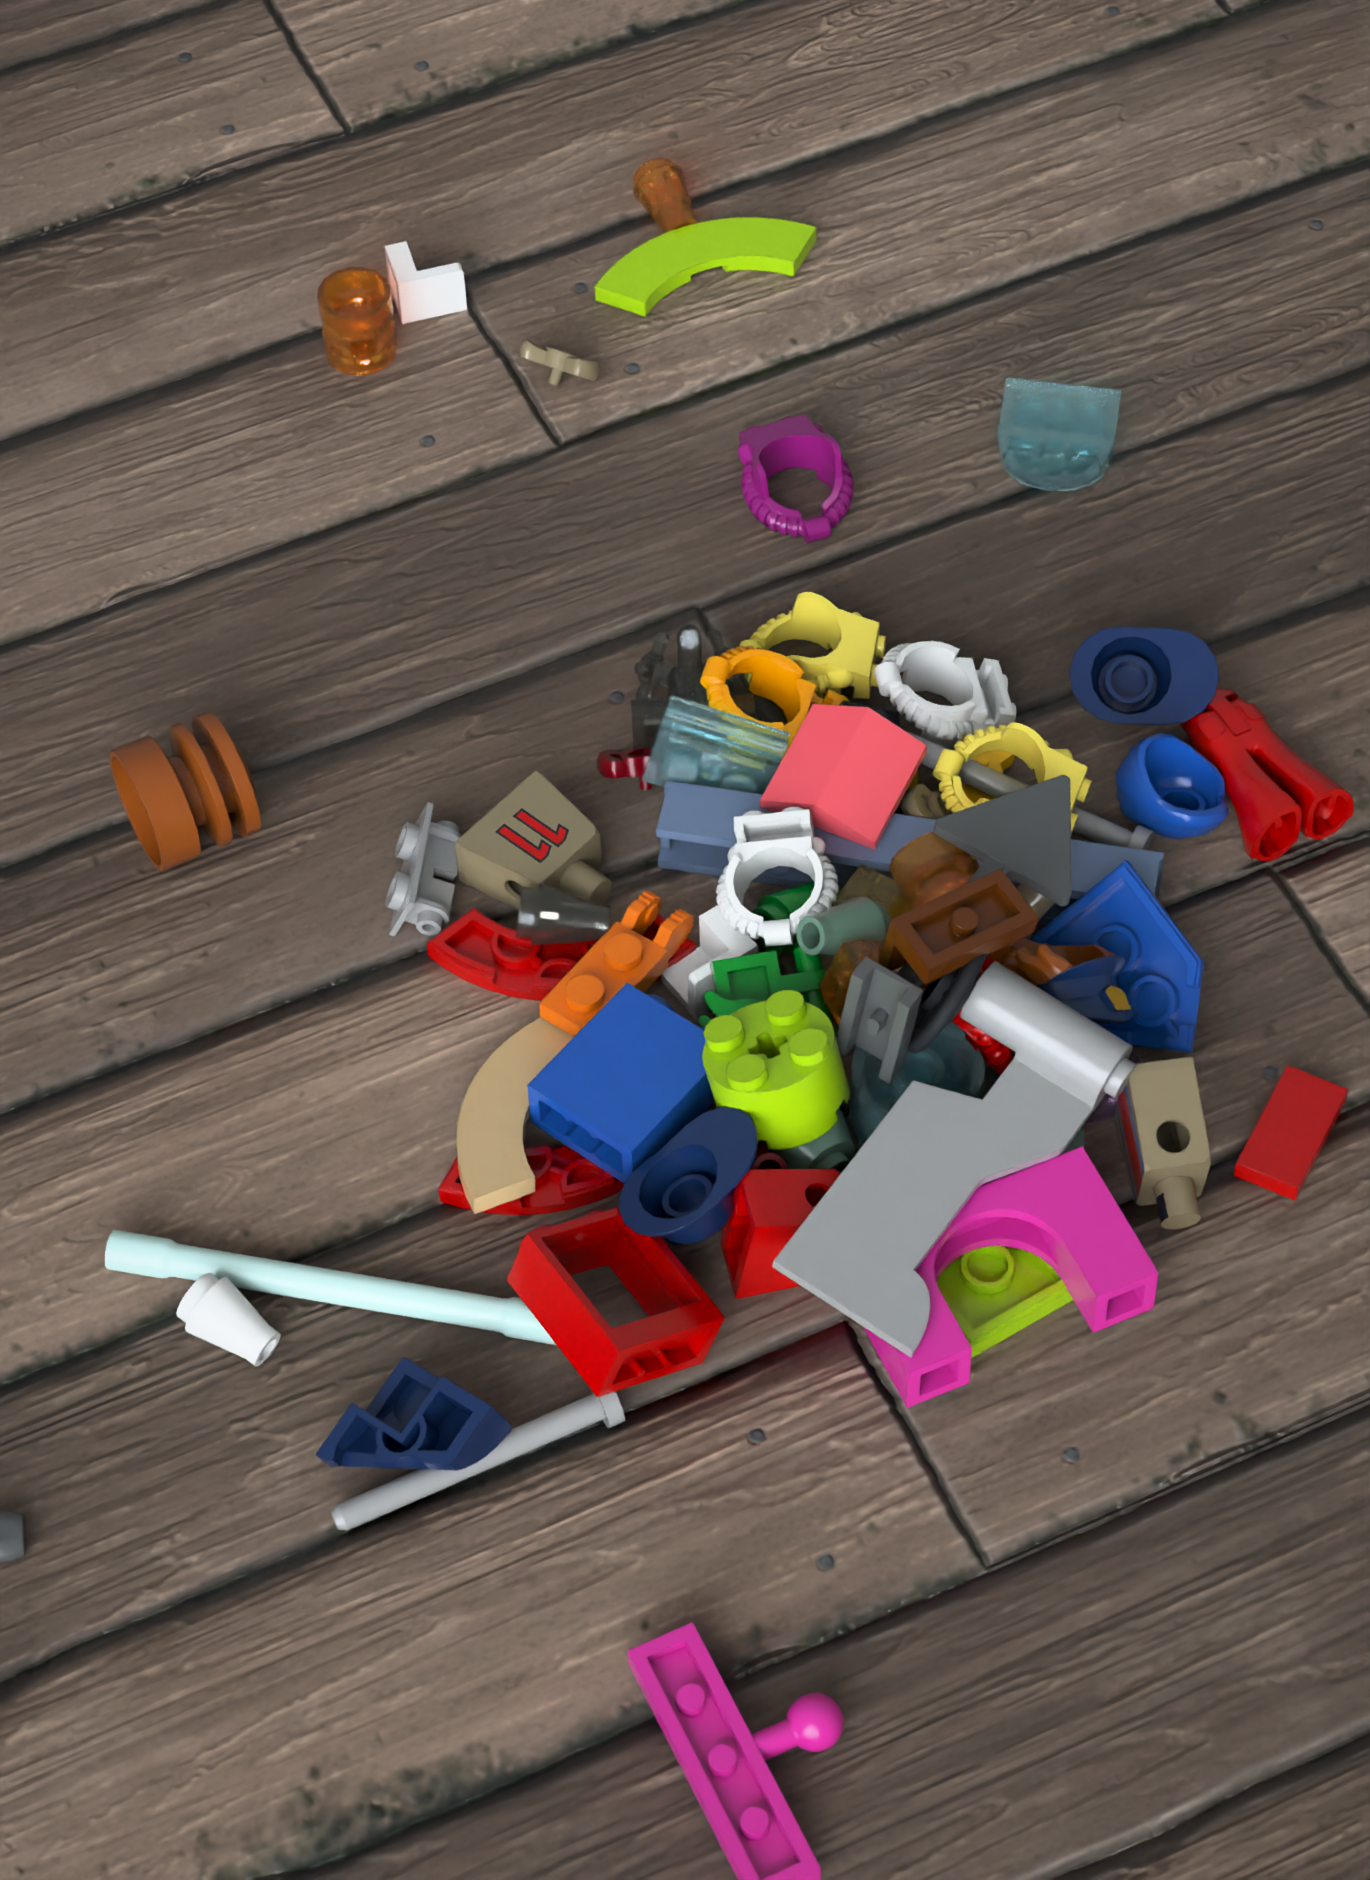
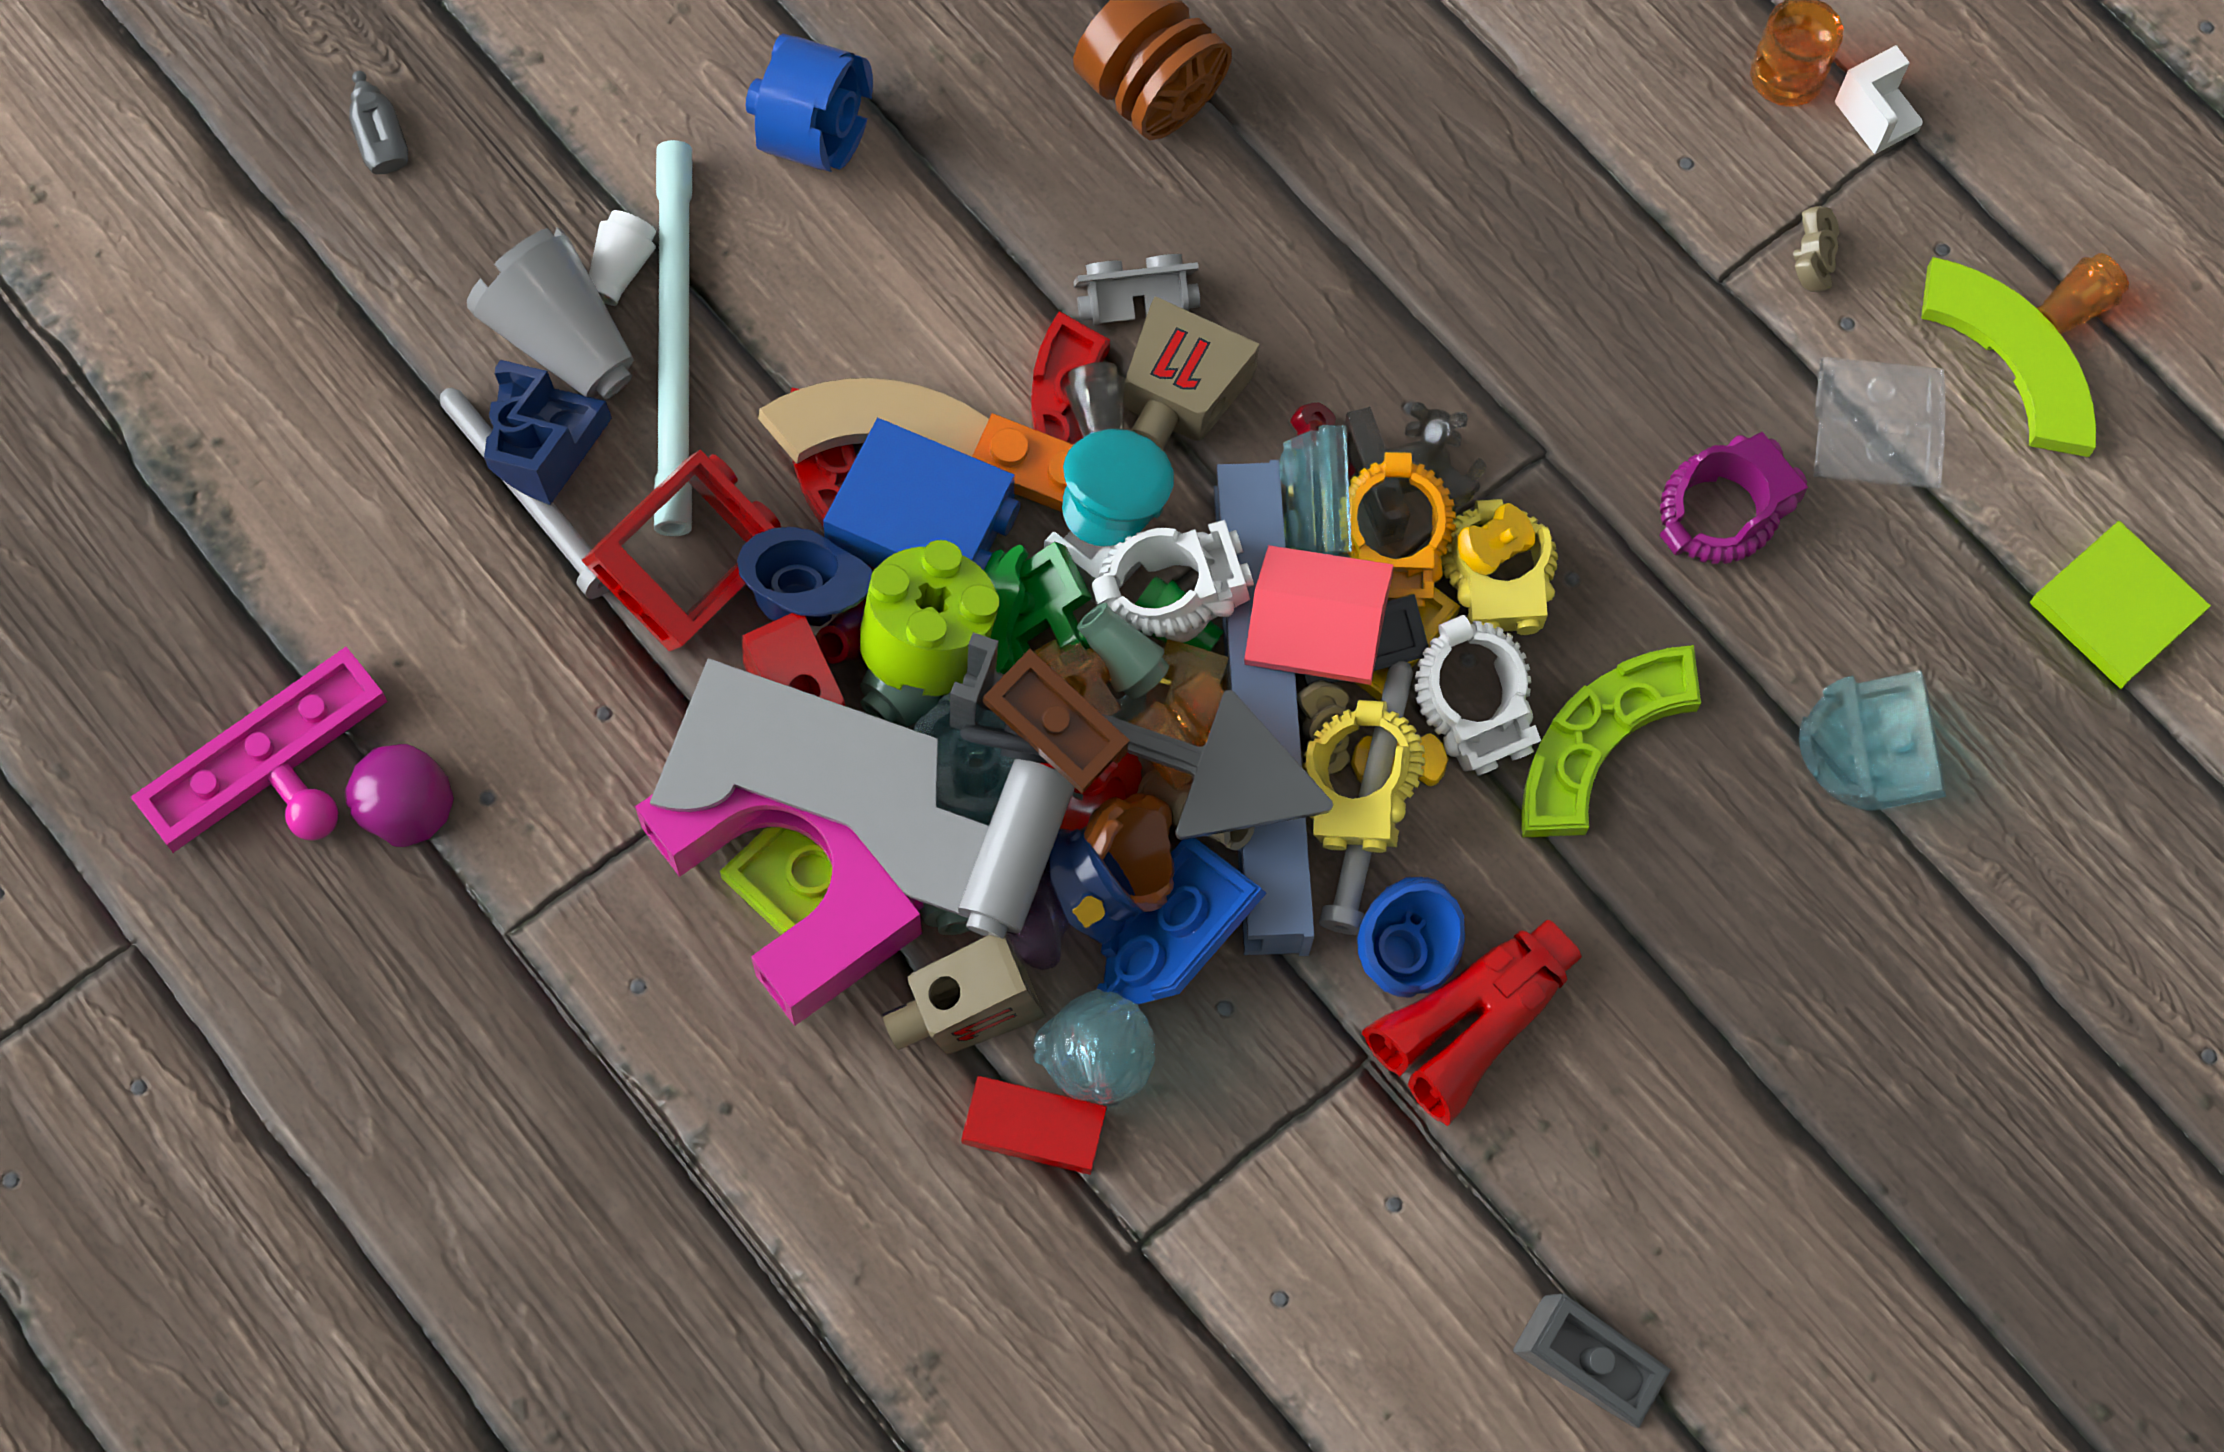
camera: 70 degrees right, 15 degrees up
(121, 1094) = (810, 103): none -> blue brick
(289, 1378) = (555, 314): none -> light grey cone
(666, 903) = (1114, 485): none -> teal piece
(747, 360) = (1880, 423): none -> clear slope
(800, 634) = (1497, 540): none -> yellow piece
(807, 1636) = (399, 794): none -> magenta hair
(964, 252) = (2119, 604): none -> lime tile
(981, 630) = (1592, 726): none -> lime tile
(1144, 675) = (1544, 878): dark blue piece -> none
(1239, 1044) = (1097, 1048): none -> clear light blue hair

